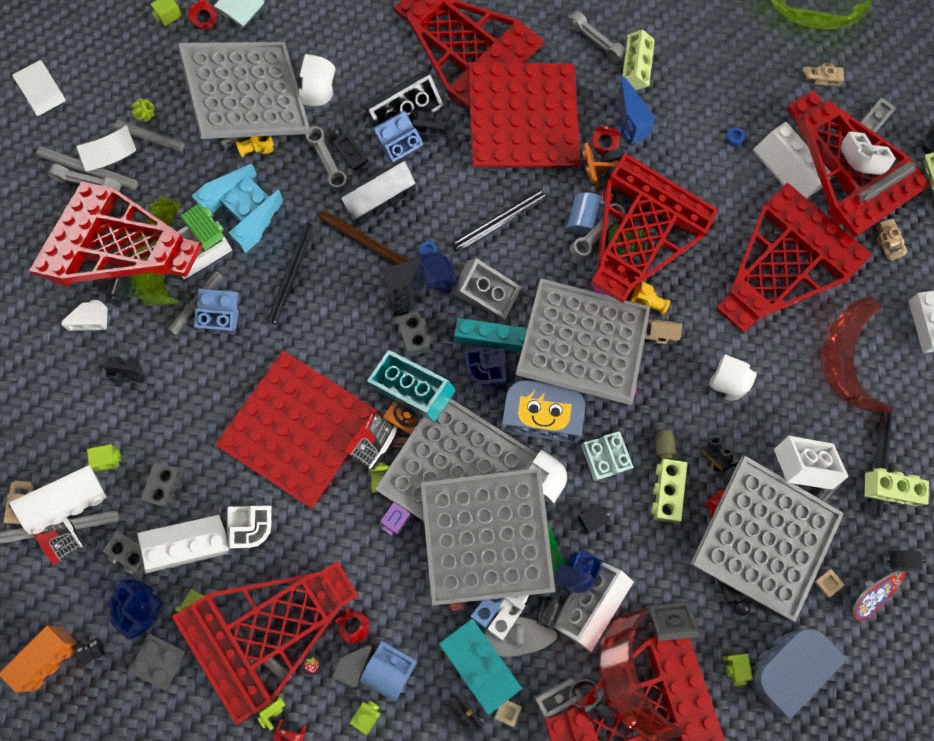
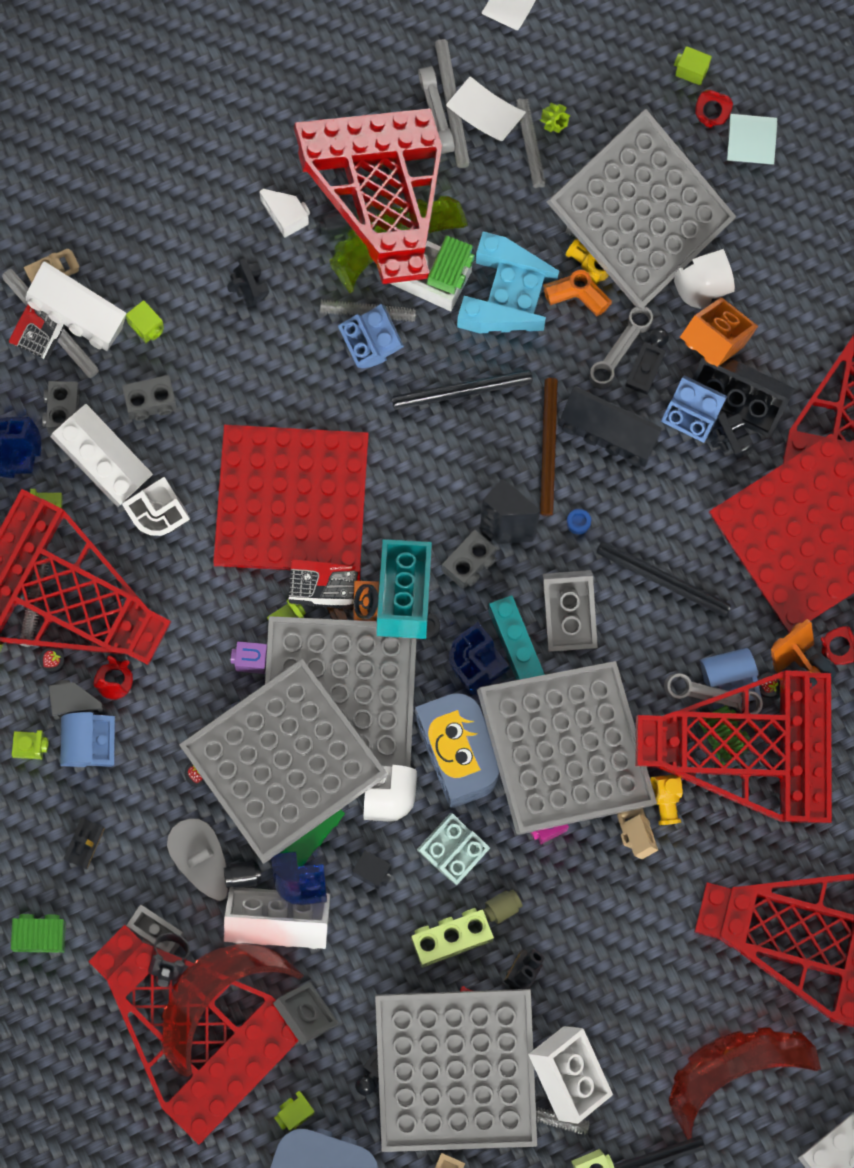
camera: 60 degrees right, 0 degrees up
(265, 168) = (590, 294): none -> orange piece
(358, 90) = (718, 332): none -> orange brick
(437, 271) = (554, 543): clear blue brick -> none
(480, 666) = (143, 832): teal brick -> none
(508, 609) = (210, 824): white hips -> none
(508, 713) = (113, 889): tan plate -> none
(732, 378) = (623, 941): white brick -> none

